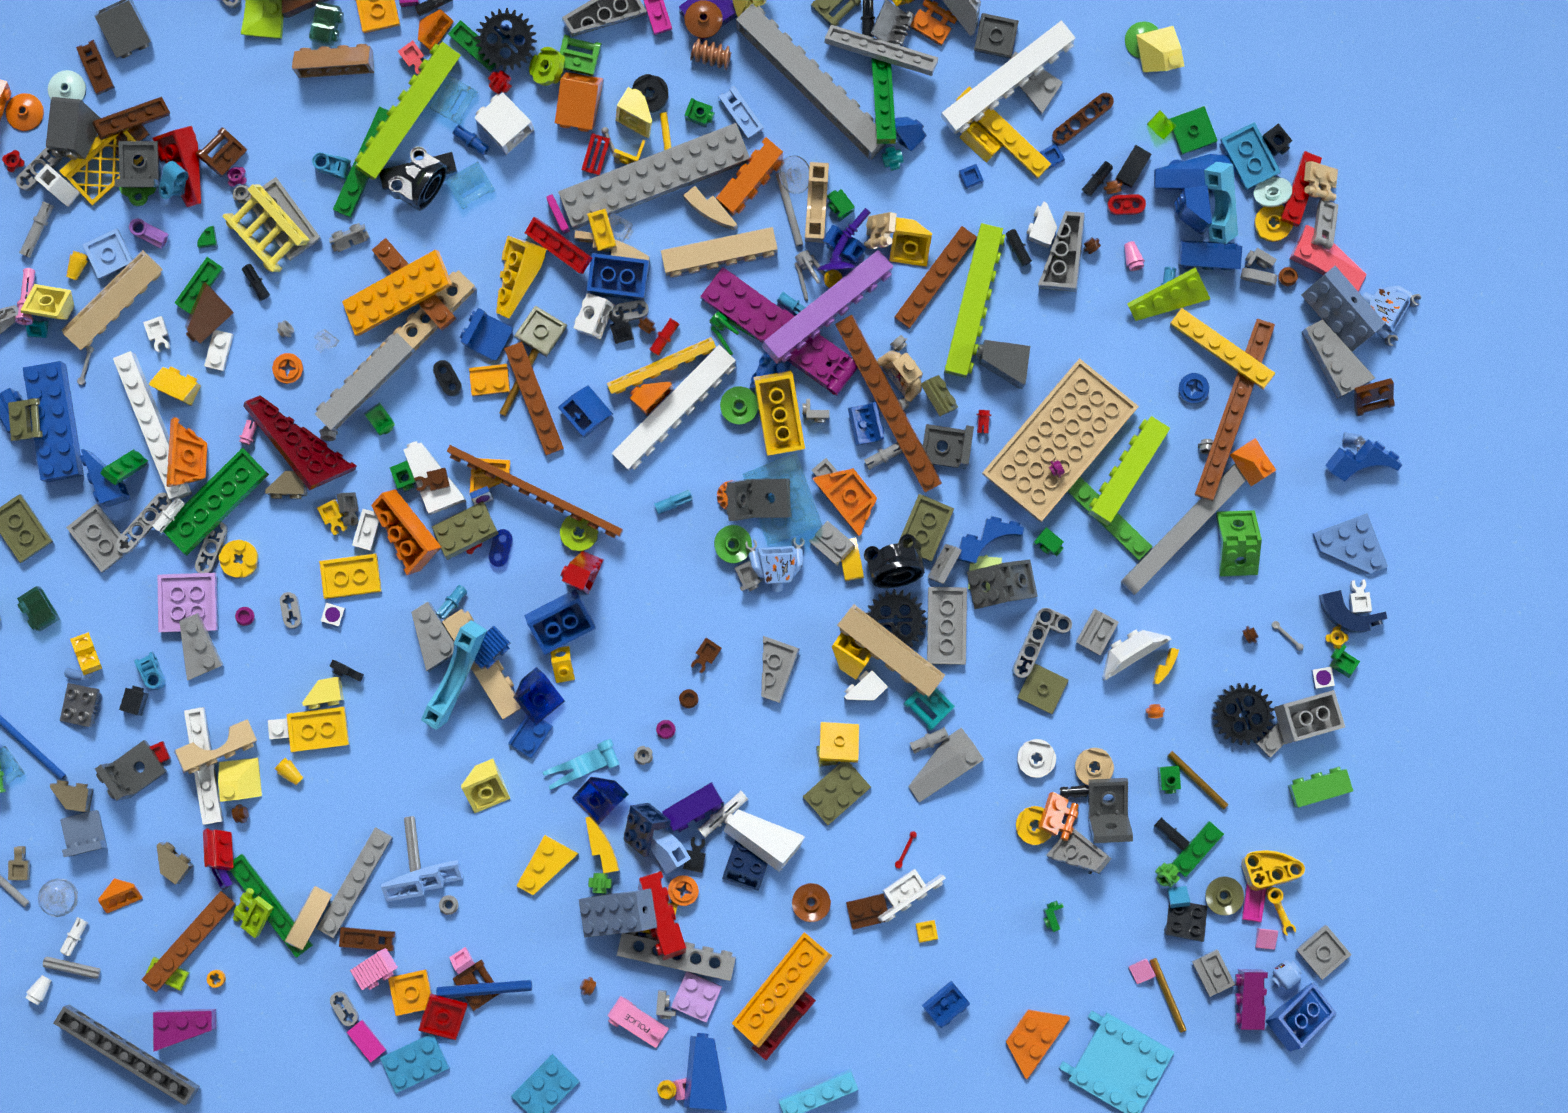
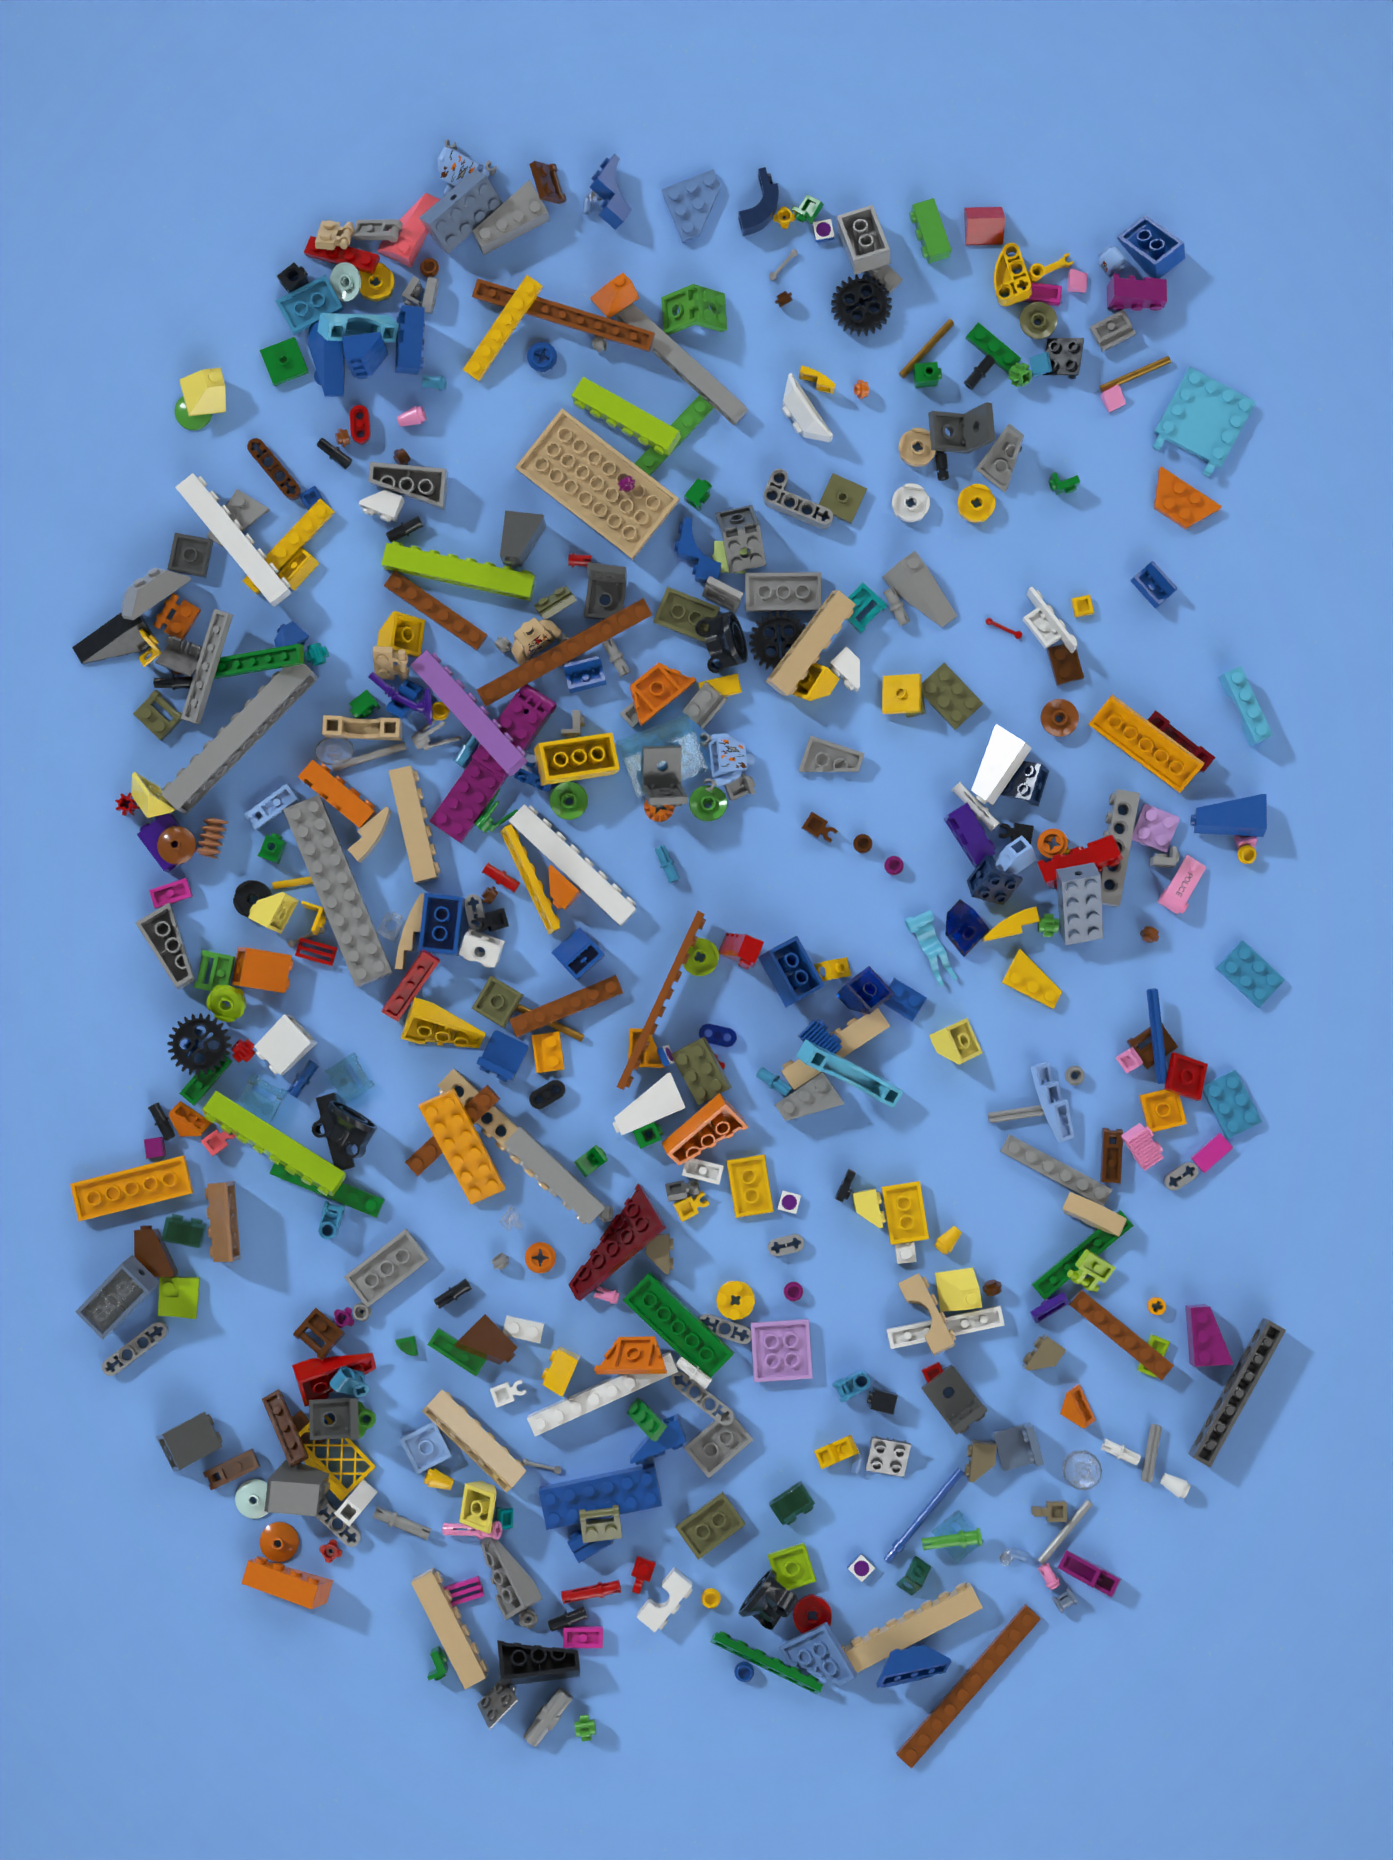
camera: 95 degrees left, 0 degrees up
(149, 233) = (404, 1404): medium lavender piece -> none
(198, 648) = (827, 1337): light grey wing -> none
(218, 849) = (1029, 1307): red plate -> none
(283, 223) = (378, 1279): light yellow fence -> none
(341, 238) = (406, 1206): light grey hinge -> none
(436, 479) = (651, 1100): reddish brown plate -> none
(557, 213) = (378, 987): dark pink tile -> none
(601, 229) = (394, 940): yellow plate -> none
(638, 755) = (925, 886): light grey plate -> none
(971, 176) = (333, 577): blue tile -> none
(1053, 815) = (964, 483): plate -> none
(1097, 632) = (785, 446): light grey plate -> none
(1133, 166) = (322, 418): black slope -> none
(1161, 124) = (278, 391): clear neon green slope -> none
(1174, 294) = (449, 374): lime wing -> none
(1323, 952) = (1088, 226): light grey plate -> none
(1326, 843) = (984, 225): none -> slope
(1360, 601) = (747, 195): white plate -> none

